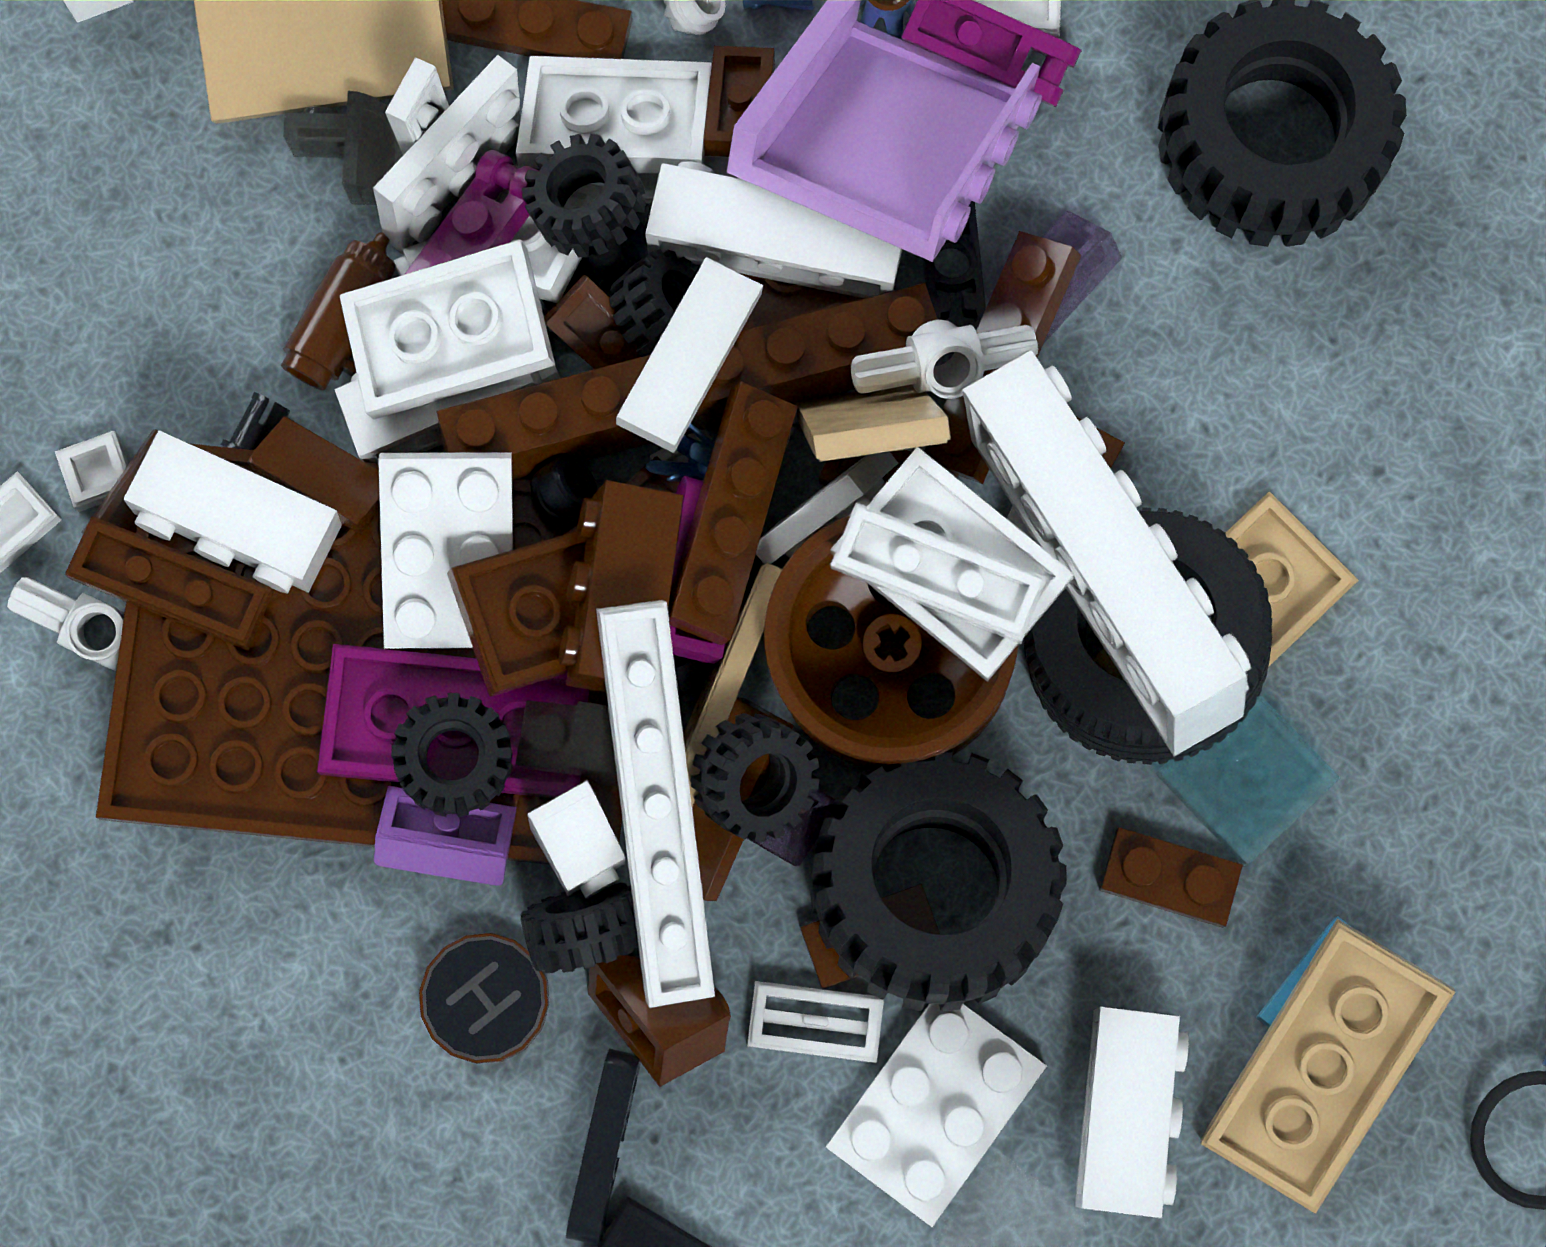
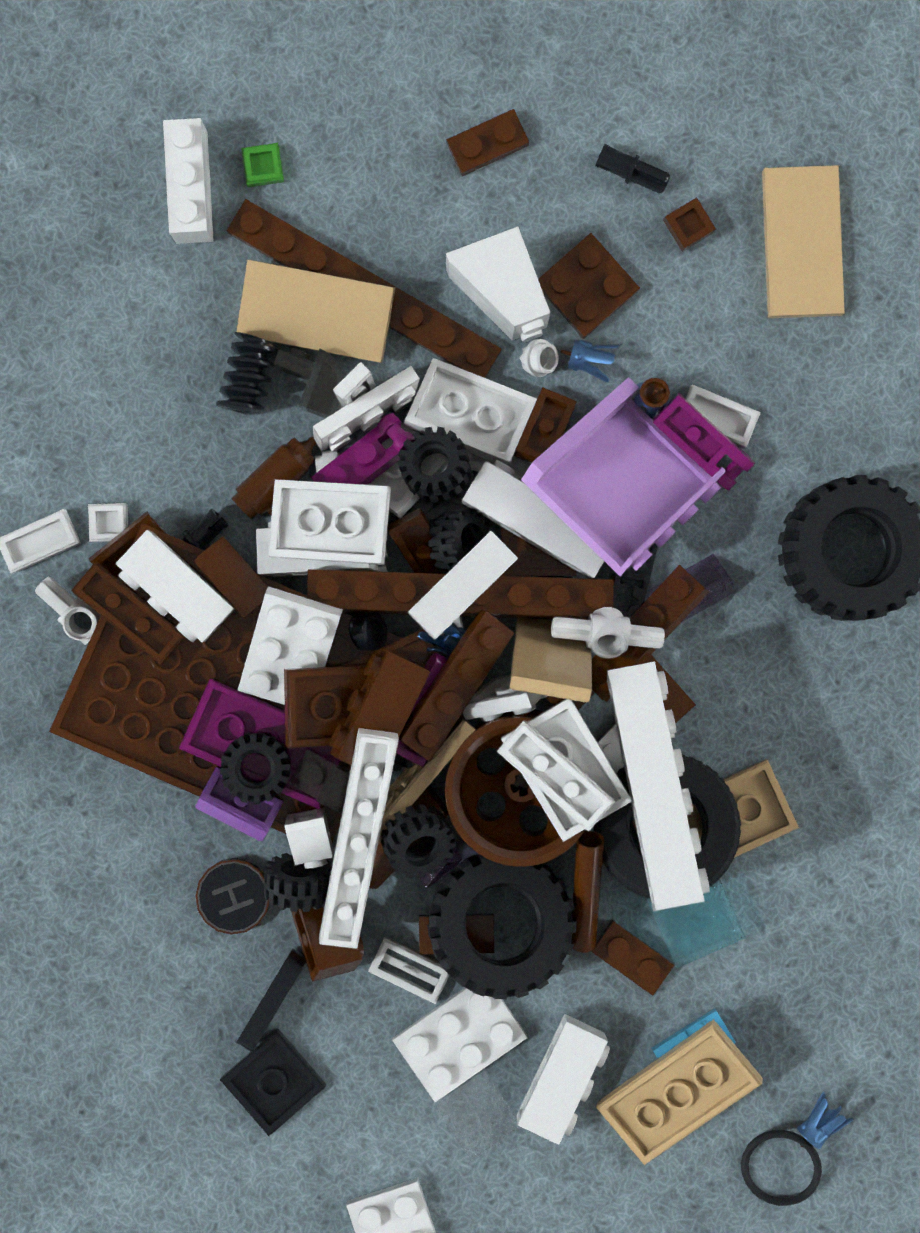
camera: 20 degrees right, 10 degrees up
(245, 172) = (248, 374): none -> black piece
(1057, 774) = (587, 890): none -> reddish brown piece

